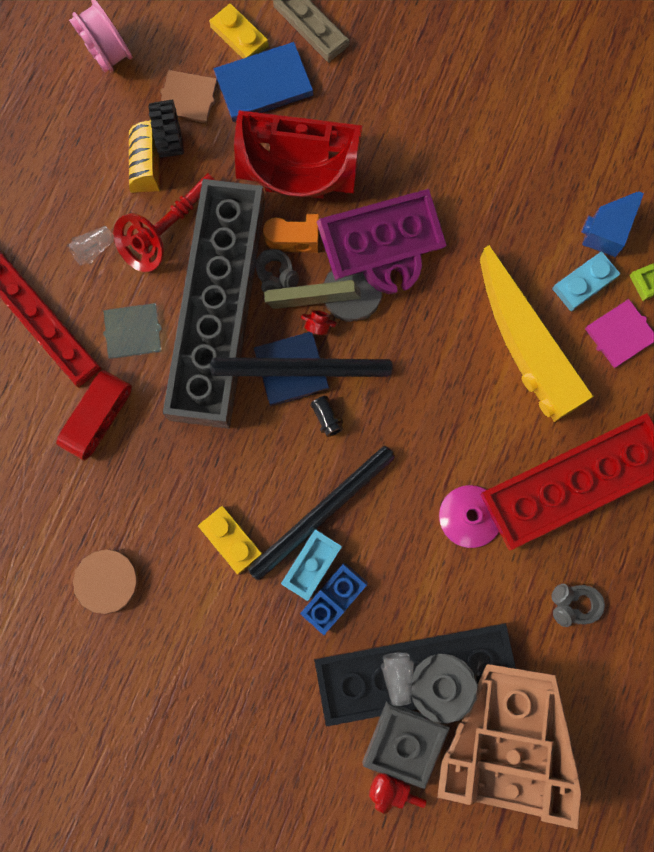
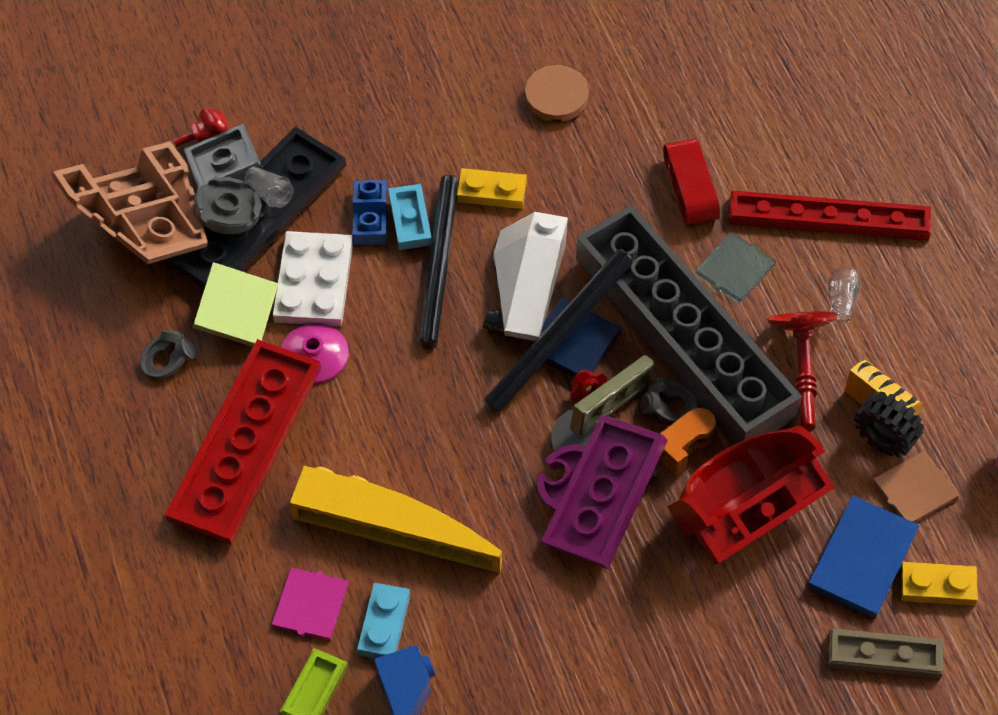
camera: 135 degrees right, 20 degrees down
(272, 442) = (527, 269): none -> white wedge
(422, 578) = (313, 278): none -> white plate
(504, 594) = (235, 305): none -> yellowish green tile

